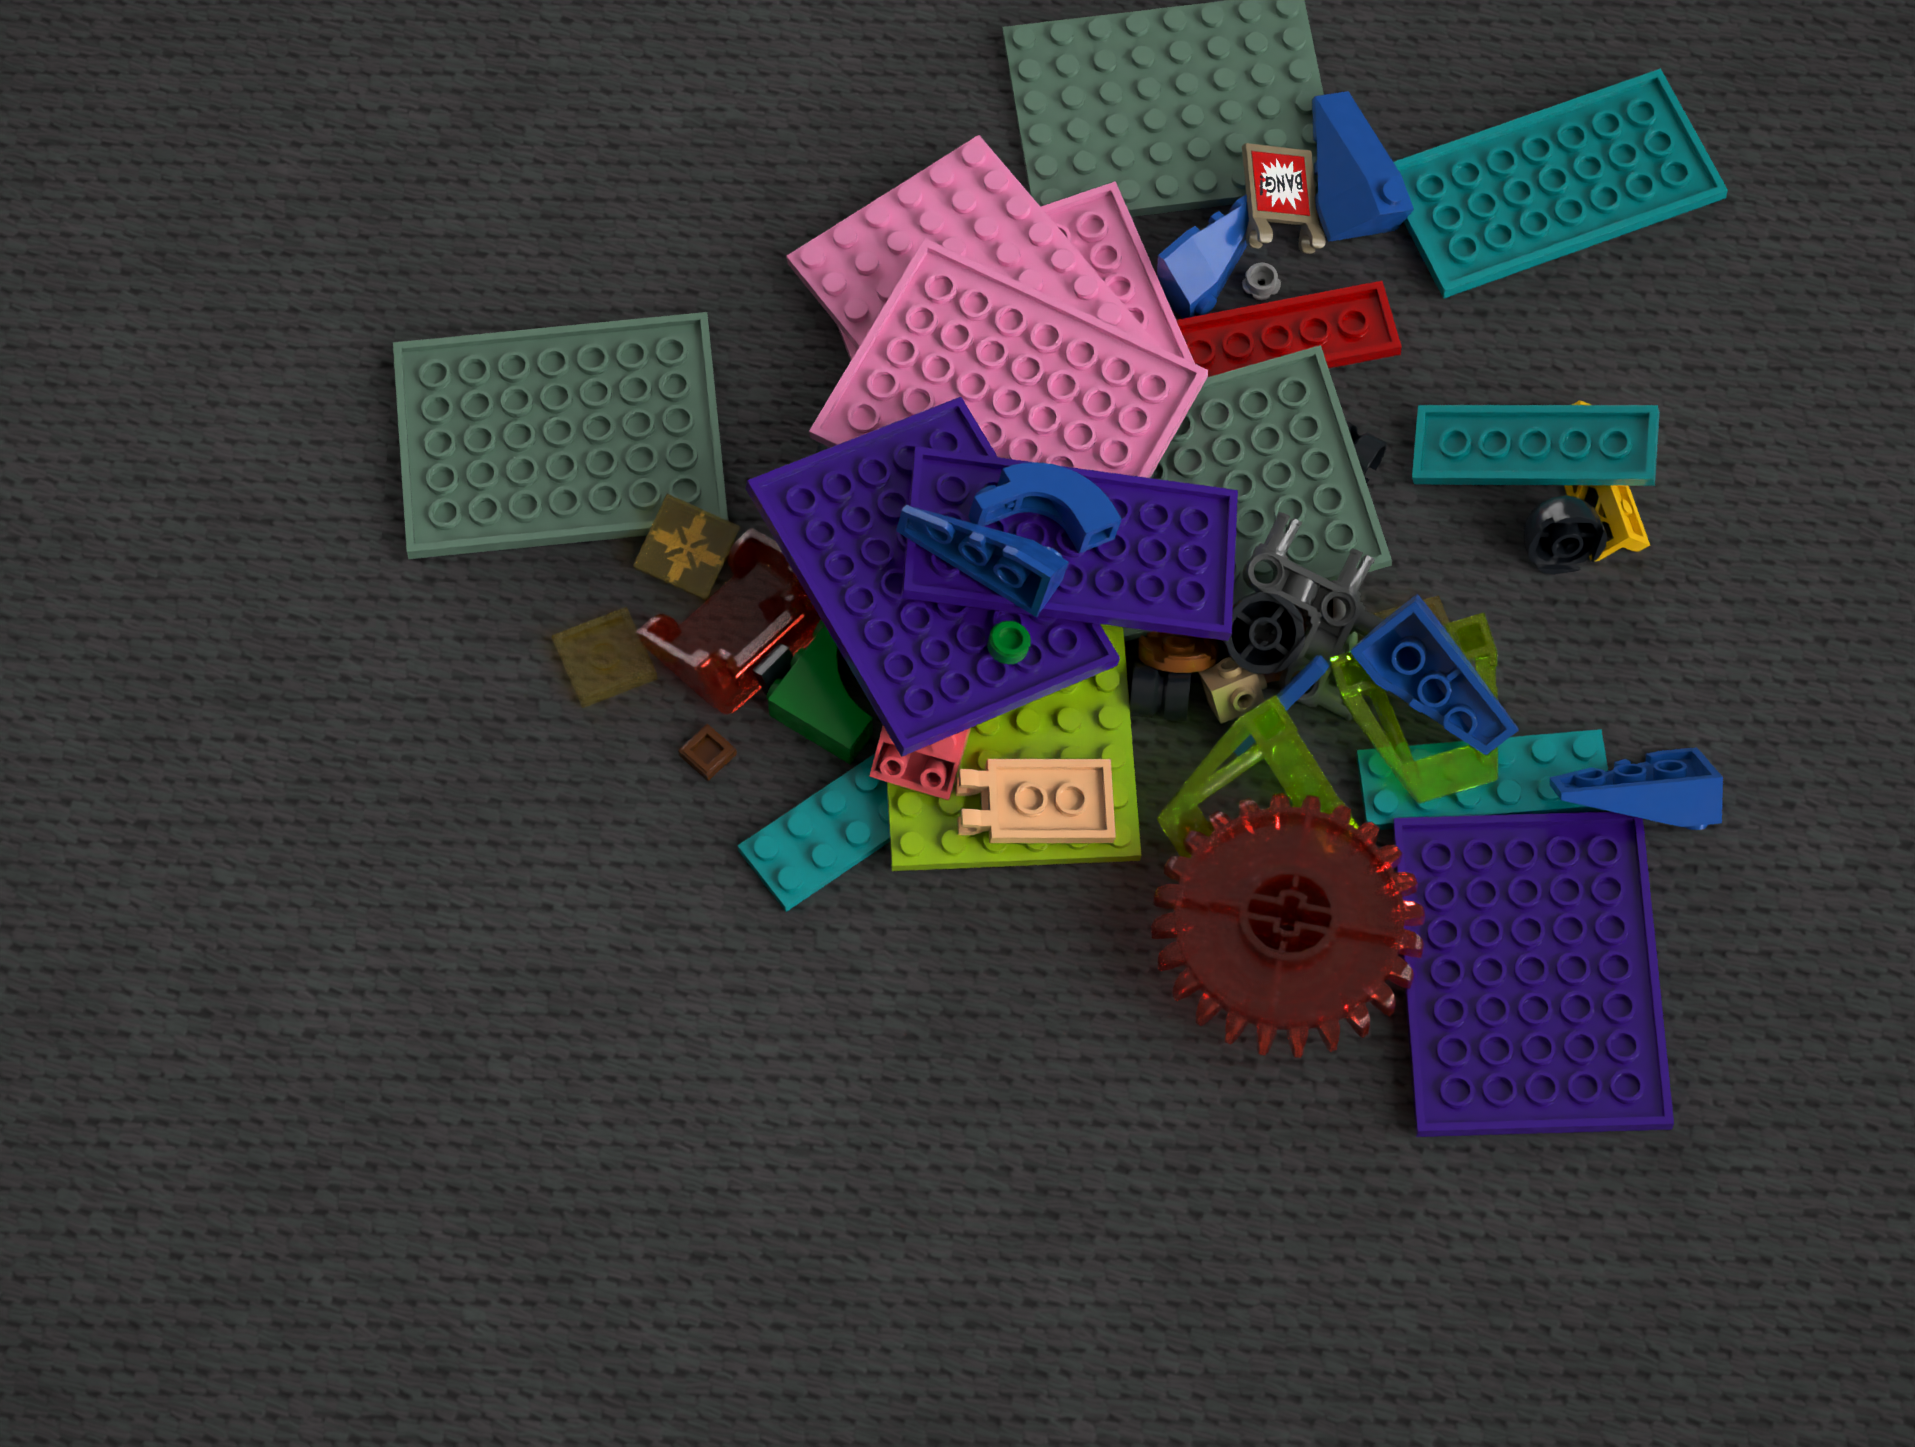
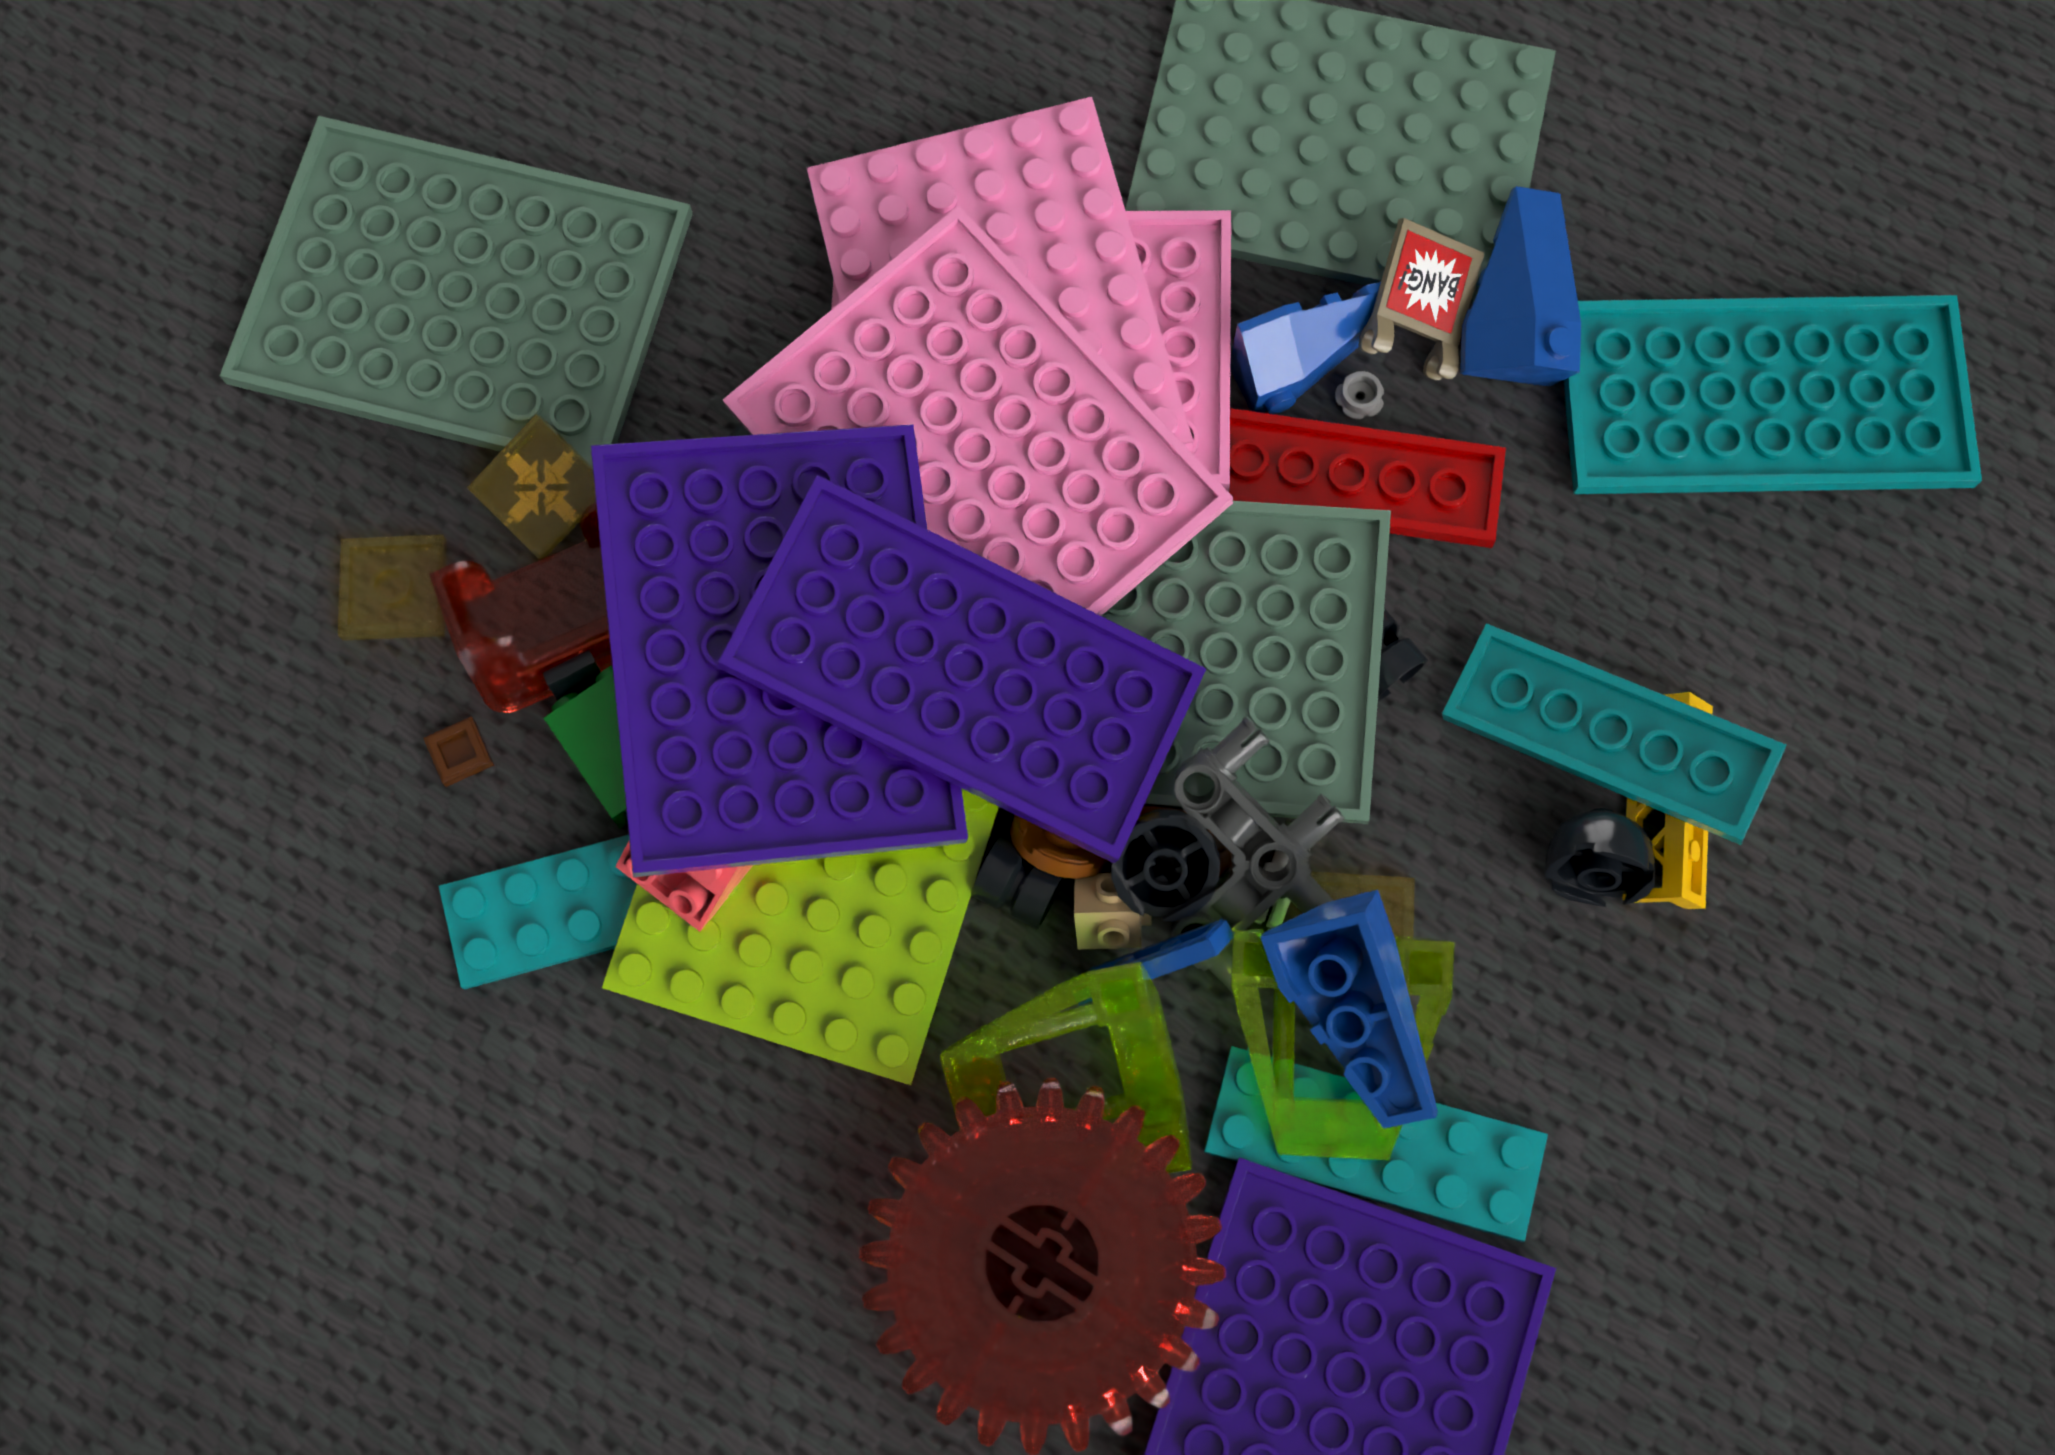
camera: 20 degrees right, 10 degrees up
(999, 560) = (856, 672): blue wedge -> none
(1008, 642) = (830, 773): green tile -> none
(1040, 801) = (809, 978): light nougat tile -> none
(1053, 492) = (961, 597): blue arch -> none
(1668, 788) = (1592, 1248): blue wedge -> none

